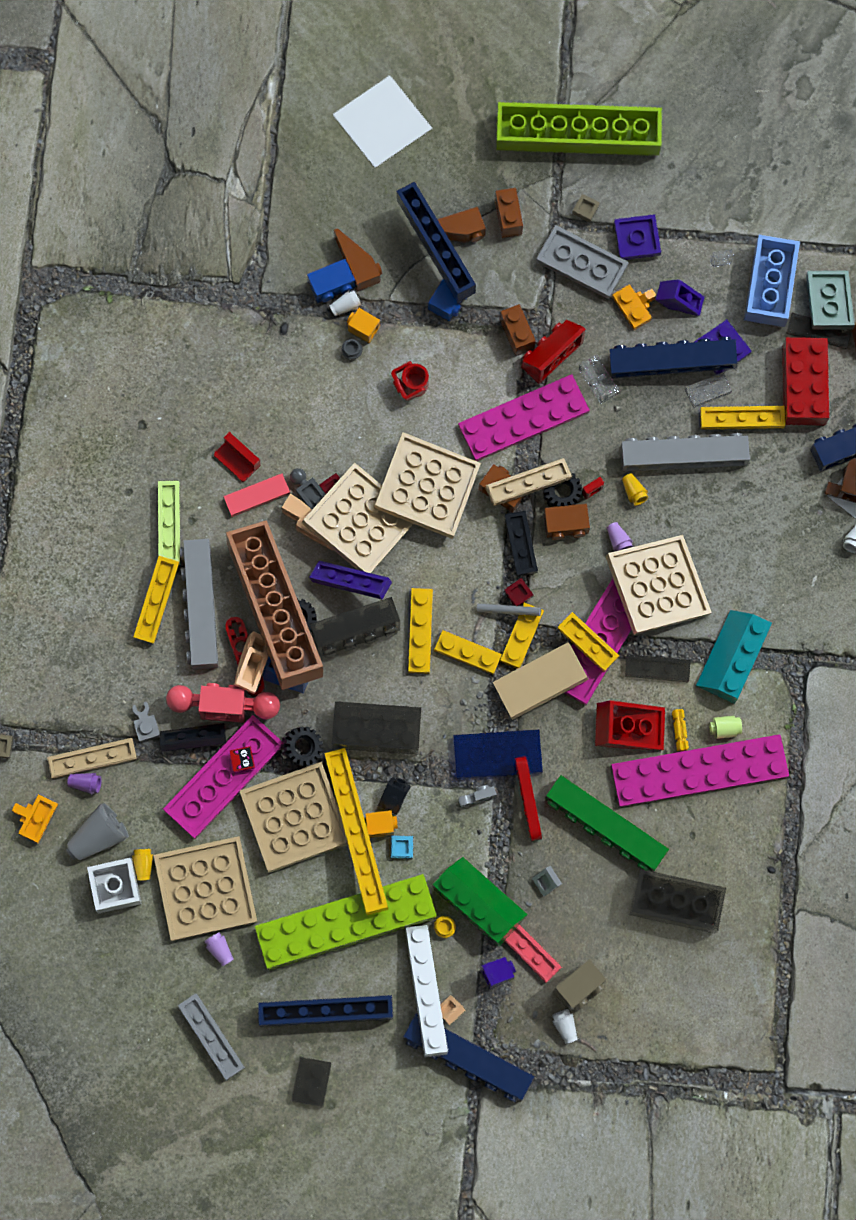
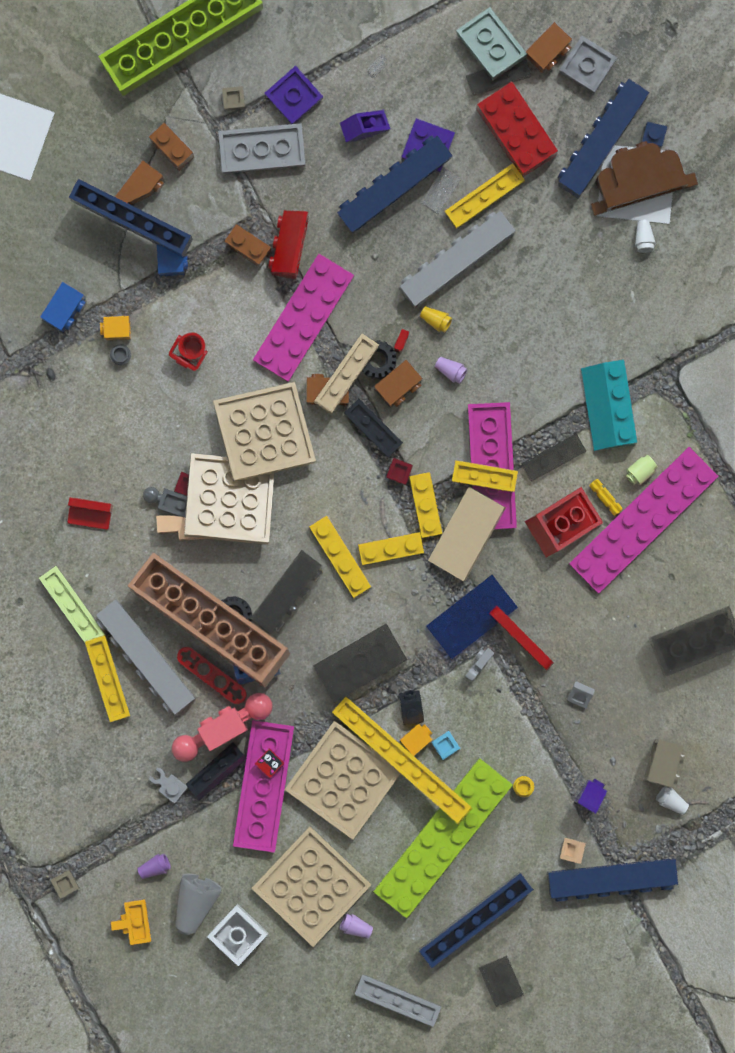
camera: 30 degrees left, 10 degrees up
(92, 758) = (145, 843): tan tile -> none
(142, 863) = (246, 899): yellow cone -> none
(251, 663) = (224, 681): light nougat slope -> none
(256, 495) = (127, 533): coral tile -> none
(314, 746) = (322, 719): black tyre -> none
(346, 303) = (89, 317): white cone -> none
(350, 580) = (256, 555): dark purple plate -> none
(359, 261) = (77, 276): dark orange slope -> none
(426, 991) = (544, 849): white plate -> none
(479, 901) = (538, 747): green slope -> none
(506, 609) = (401, 491): light grey bar -> none
(532, 954) = (604, 759): coral tile -> none
(598, 379) = (344, 242): clear hinge -> none
(606, 824) = (598, 616): green brick -> none
(634, 305) = (330, 157): light orange hinge -> none
(658, 584) = (509, 388): tan plate -> none
(772, 280) = (432, 59): light blue brick -> none

